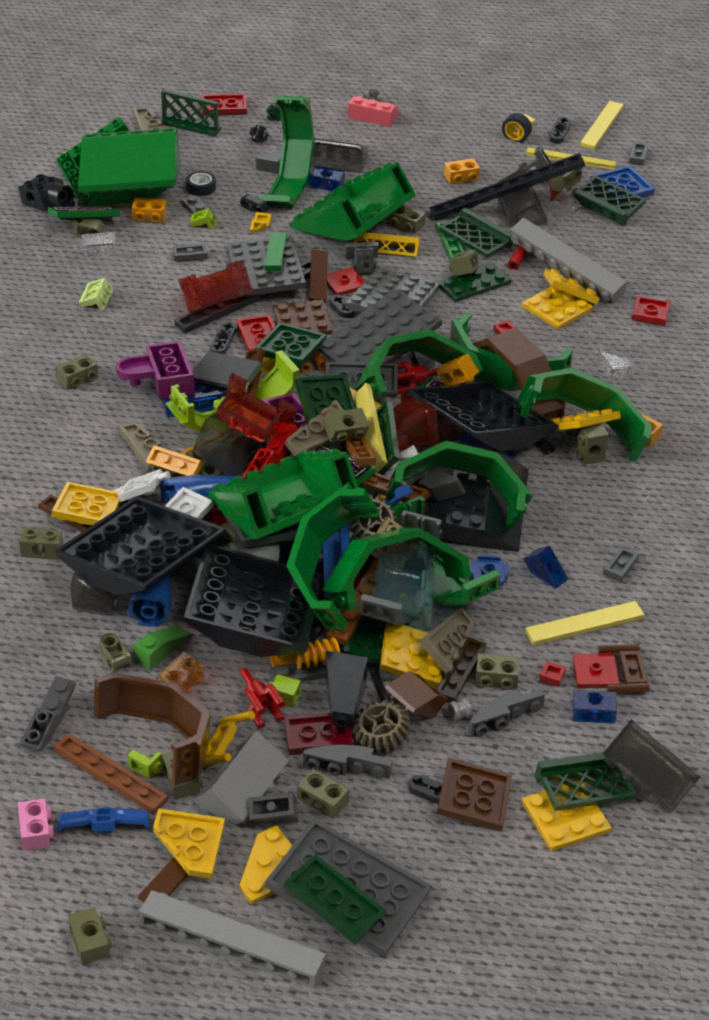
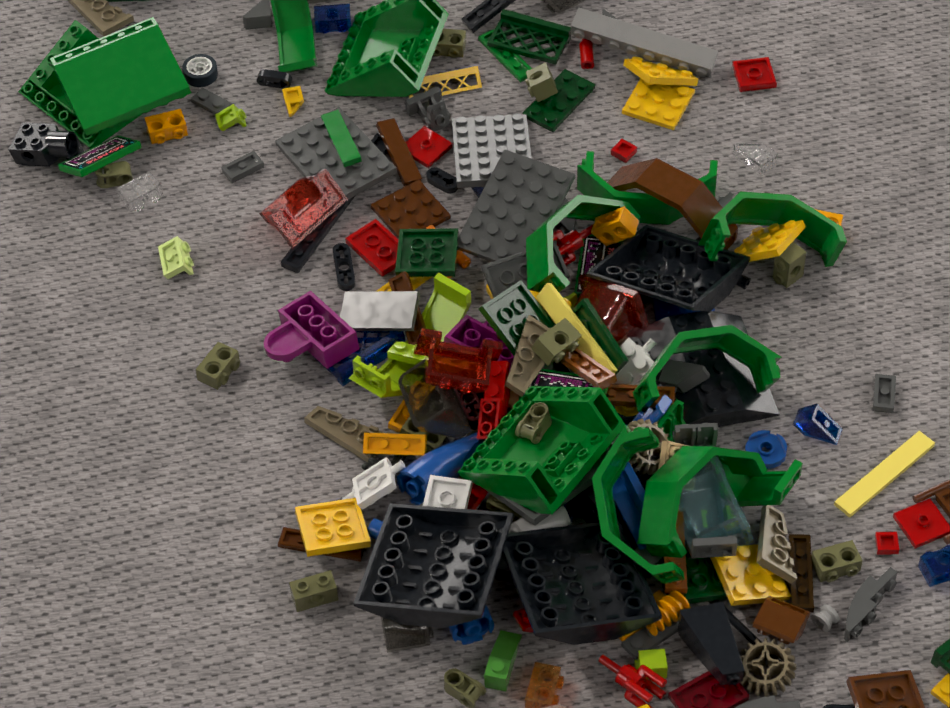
camera: 20 degrees left, 10 degrees up
(291, 474) = (534, 423): none -> olive piece

